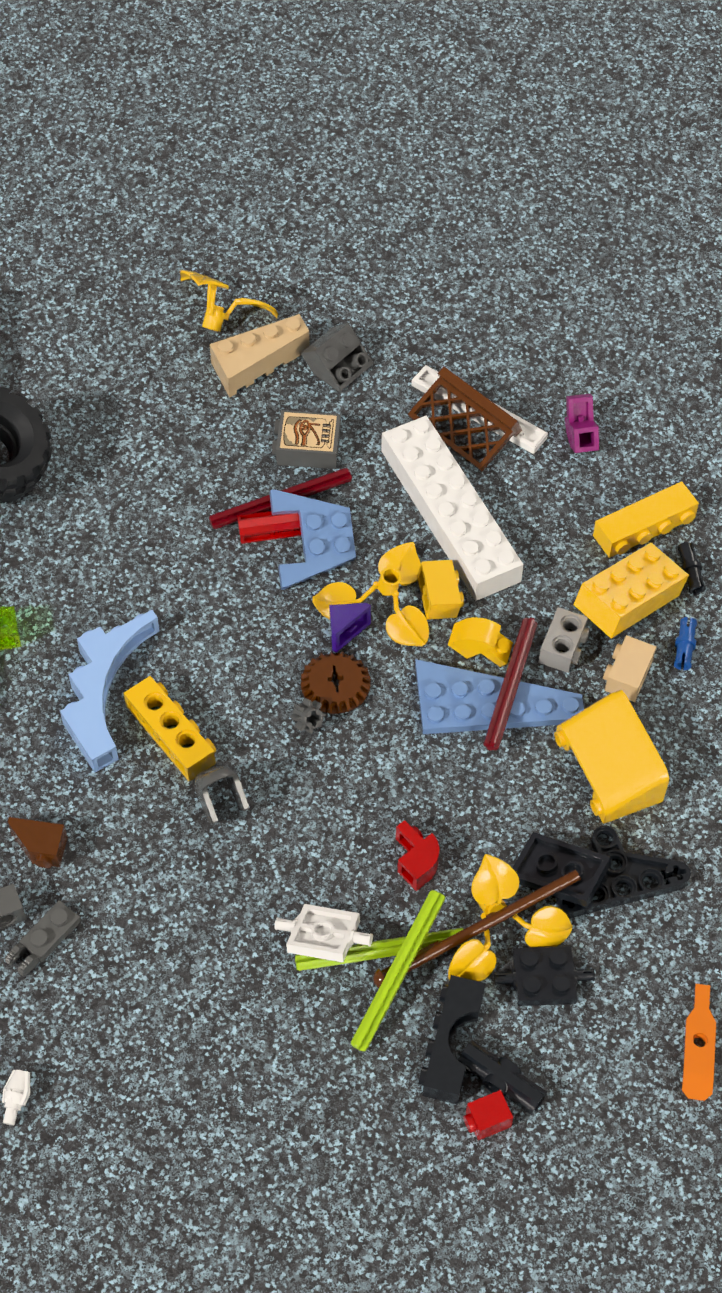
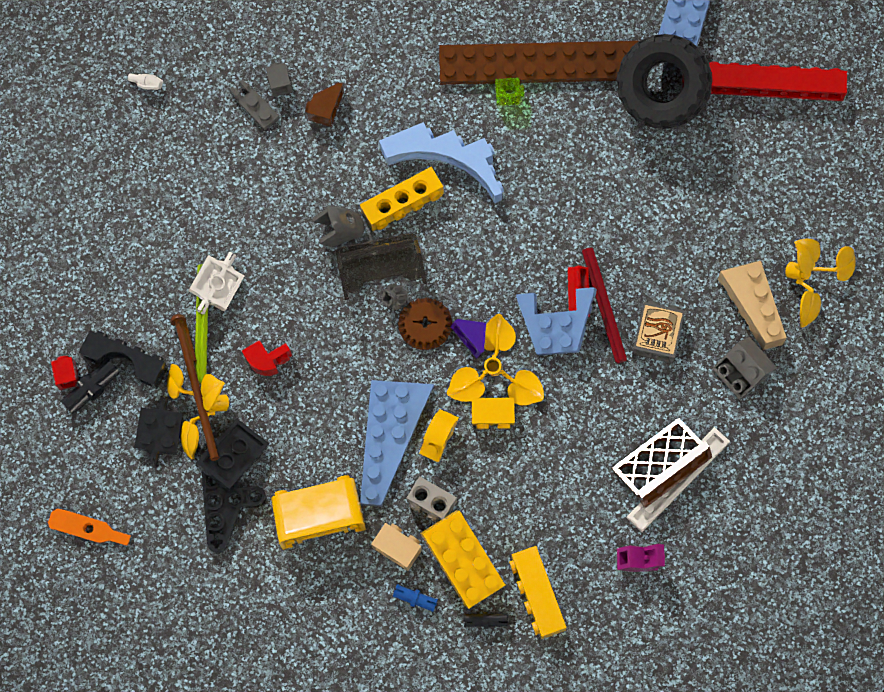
camera: 105 degrees right, 15 degrees up
(254, 738) = (379, 260): none -> clear smoke windscreen
(398, 971) = (176, 328): lime axle -> none
(451, 508) = (573, 434): white brick -> none
(510, 684) = (396, 450): dark red axle -> none

